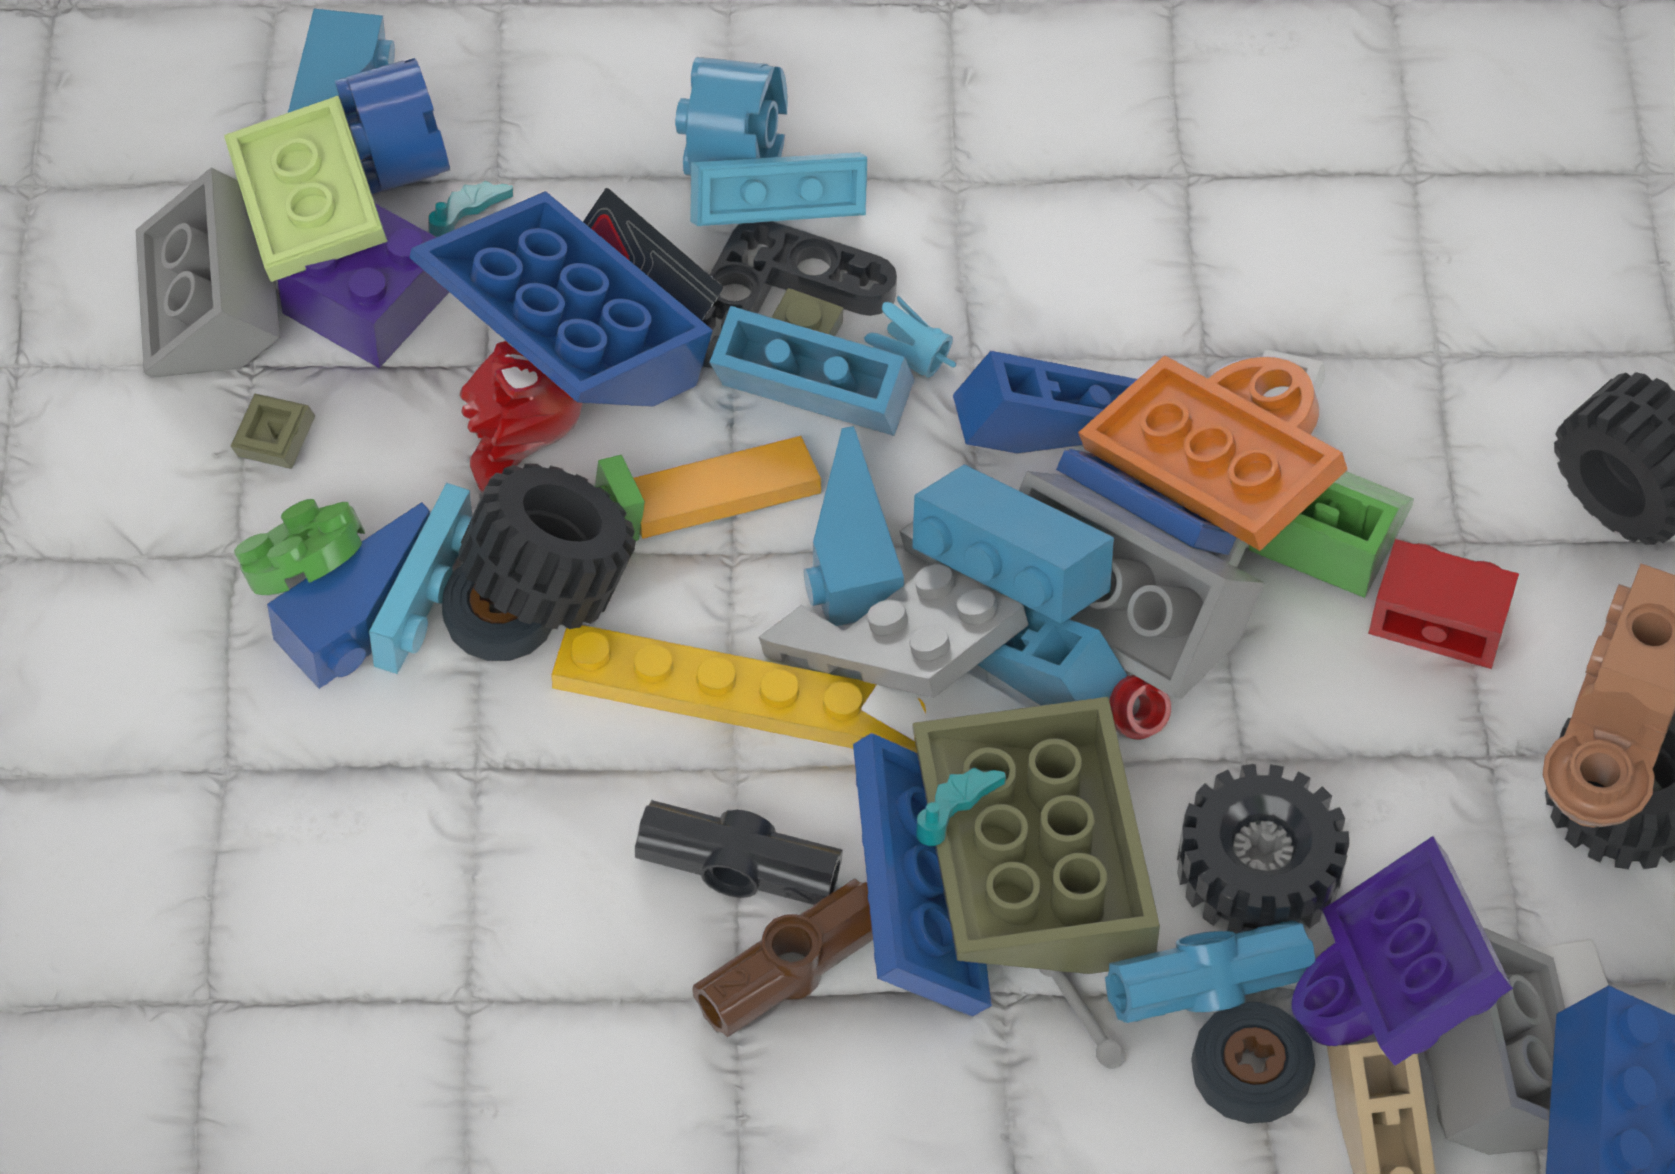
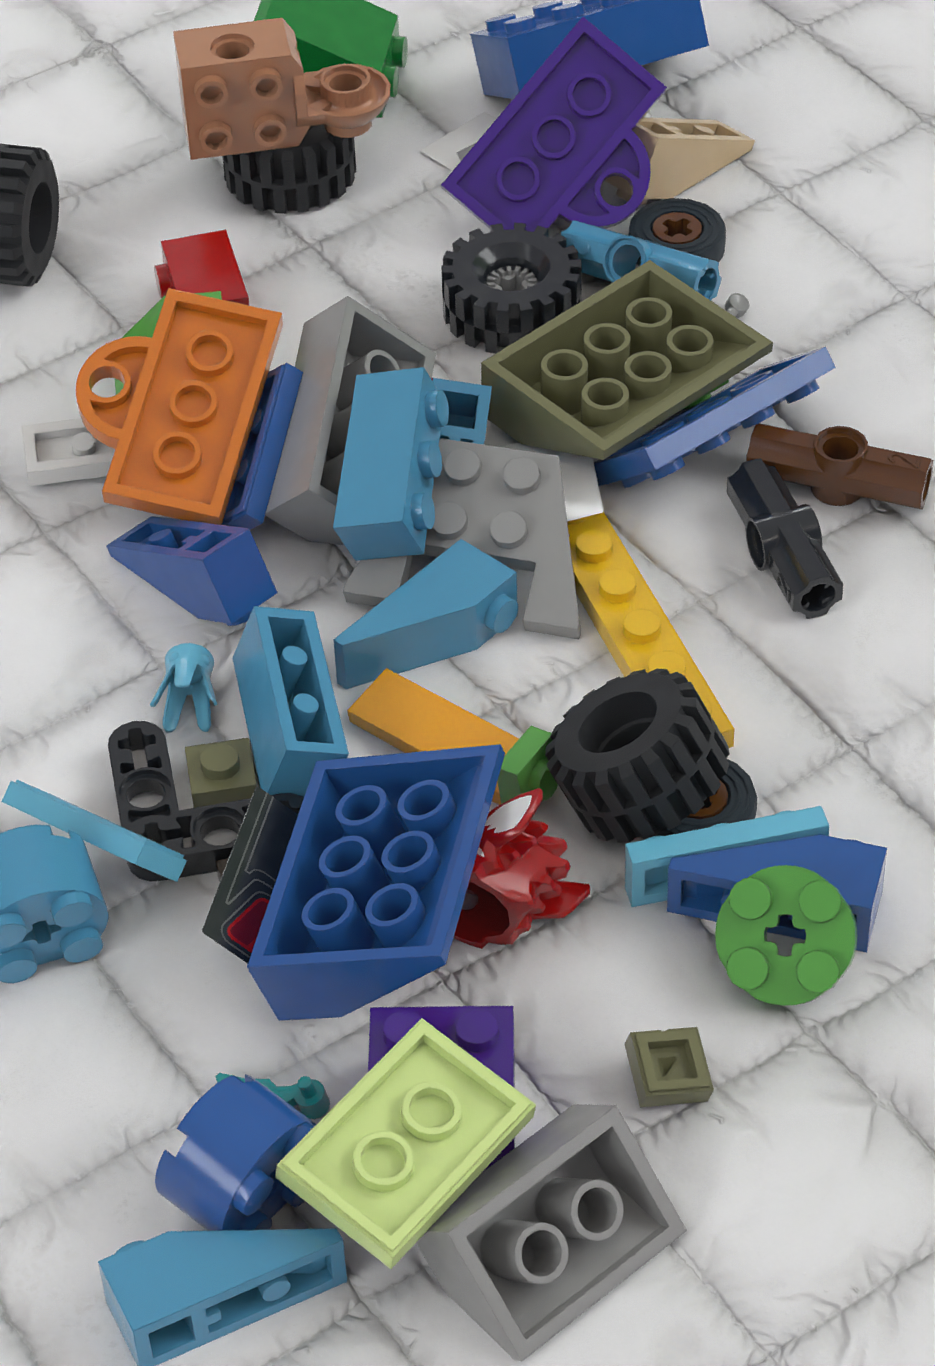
camera: 120 degrees left, 10 degrees down
(958, 794) = (655, 390): teal piece -> none

